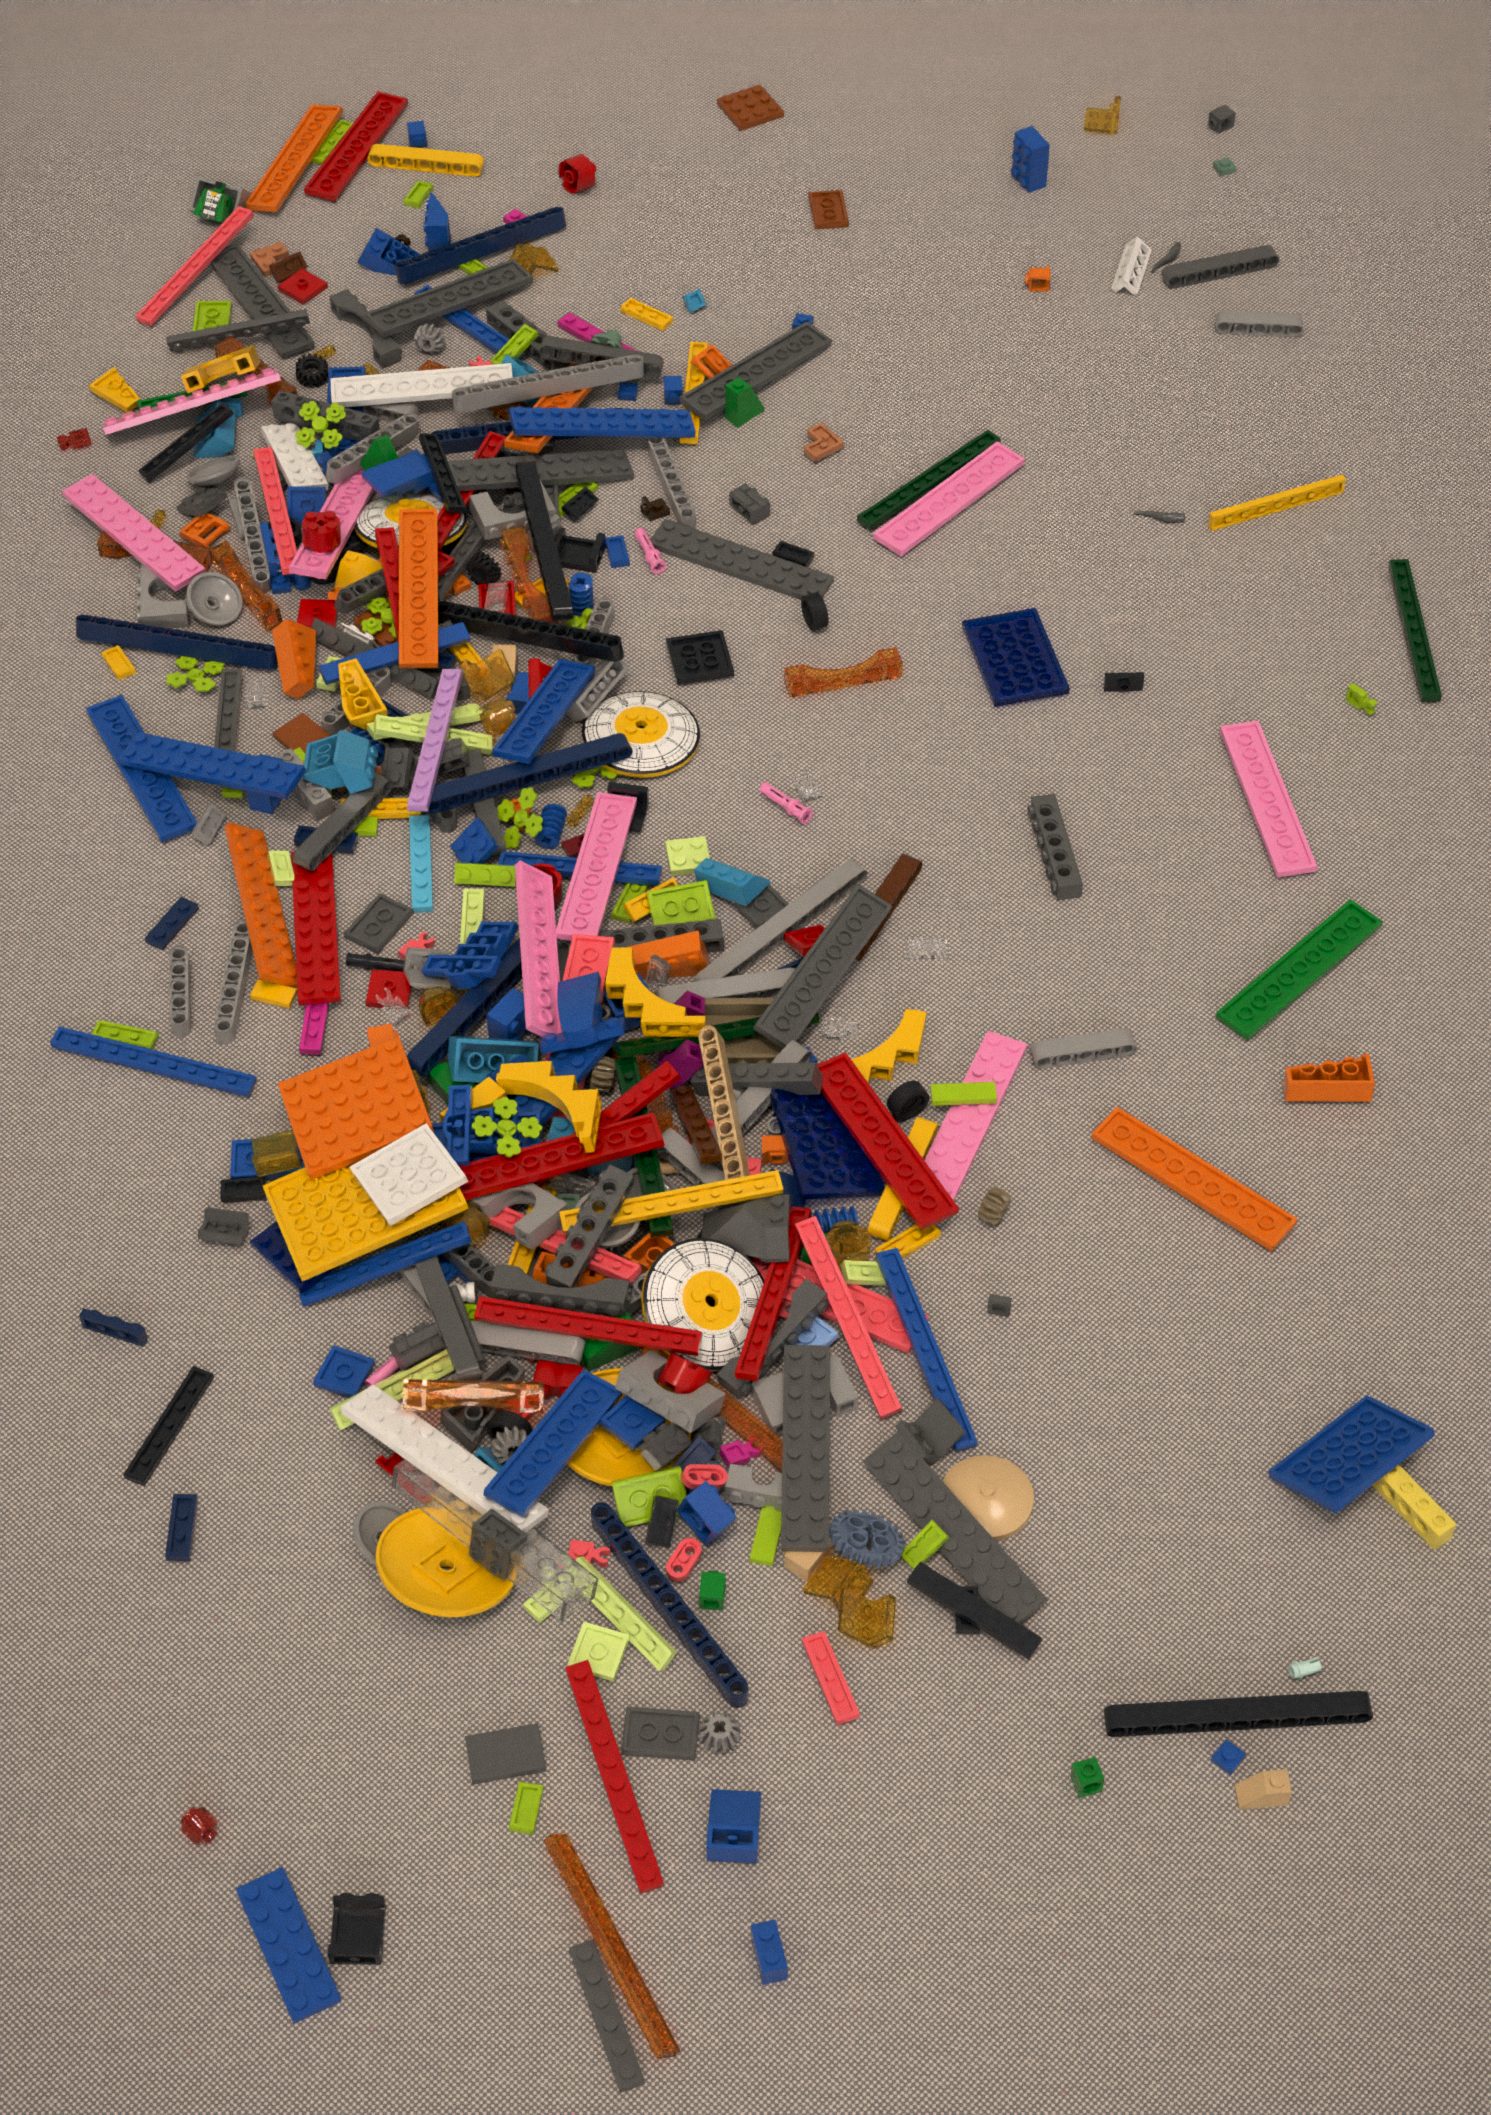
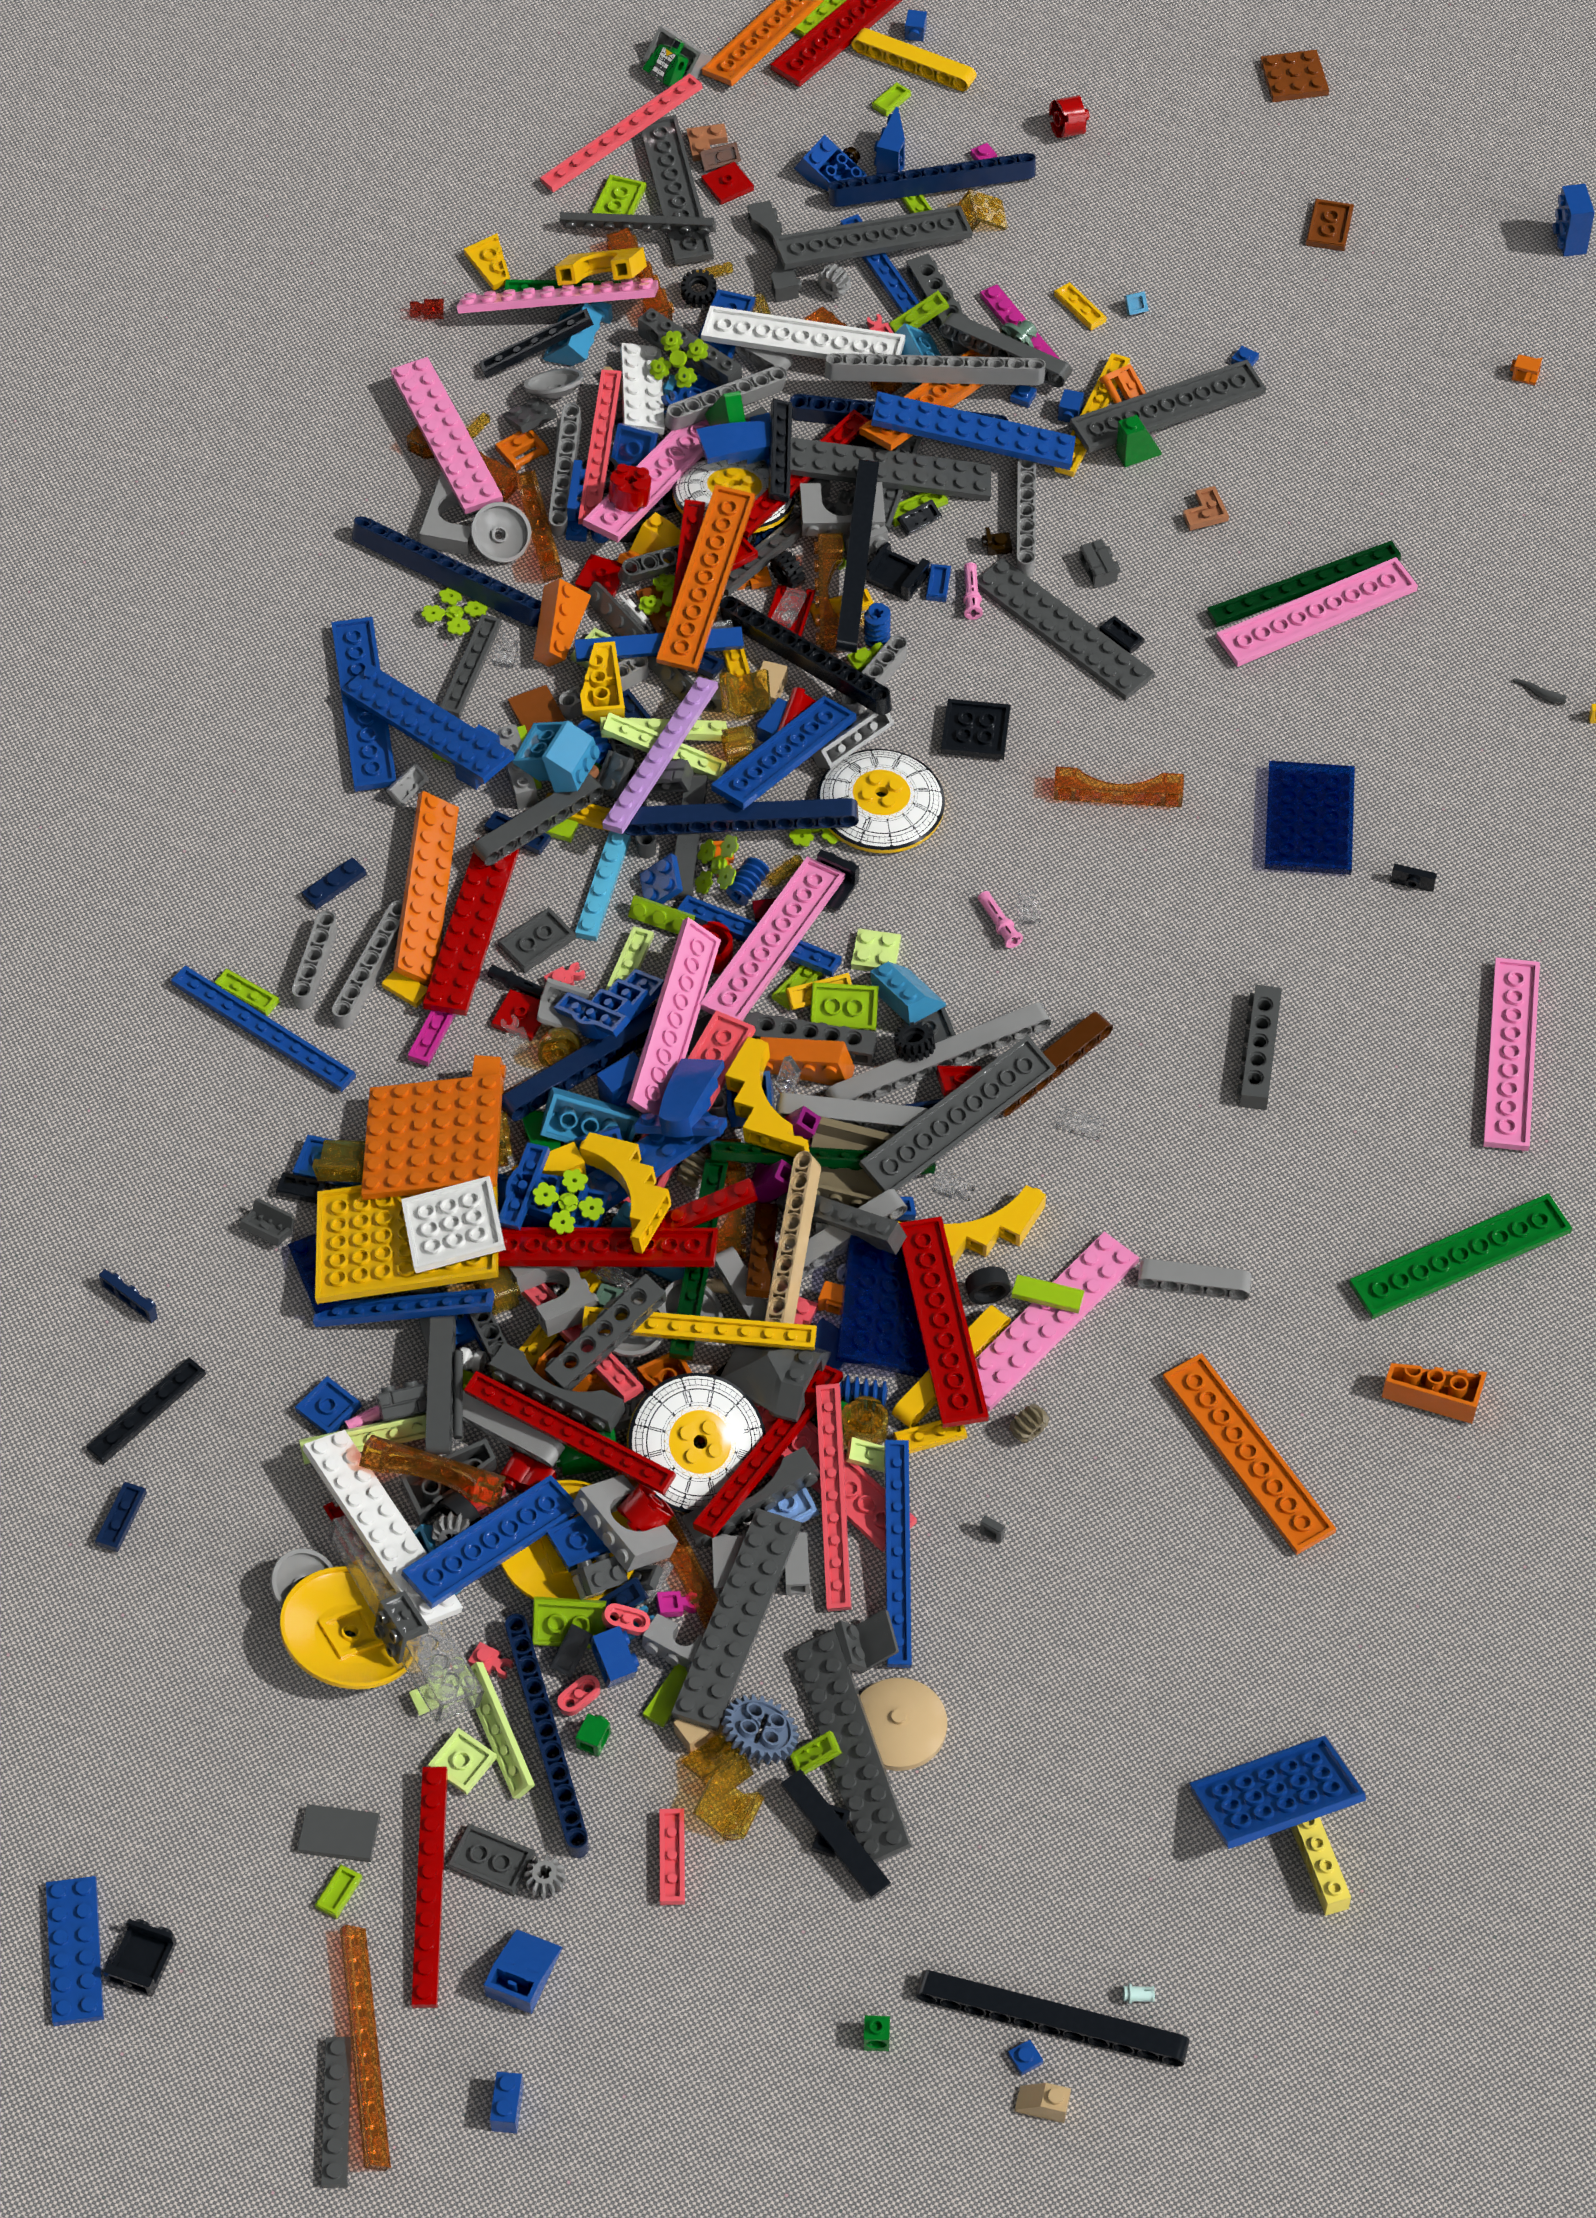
camera: 20 degrees right, 5 degrees up
(118, 662) = (383, 578): yellow tile -> none
(199, 1825) = (33, 1812): clear red head -> none
(281, 868) = (461, 852): yellowish green plate -> none
(758, 916) = (907, 1048): none -> black tyre
(814, 611) = (1114, 709): black tyre -> none

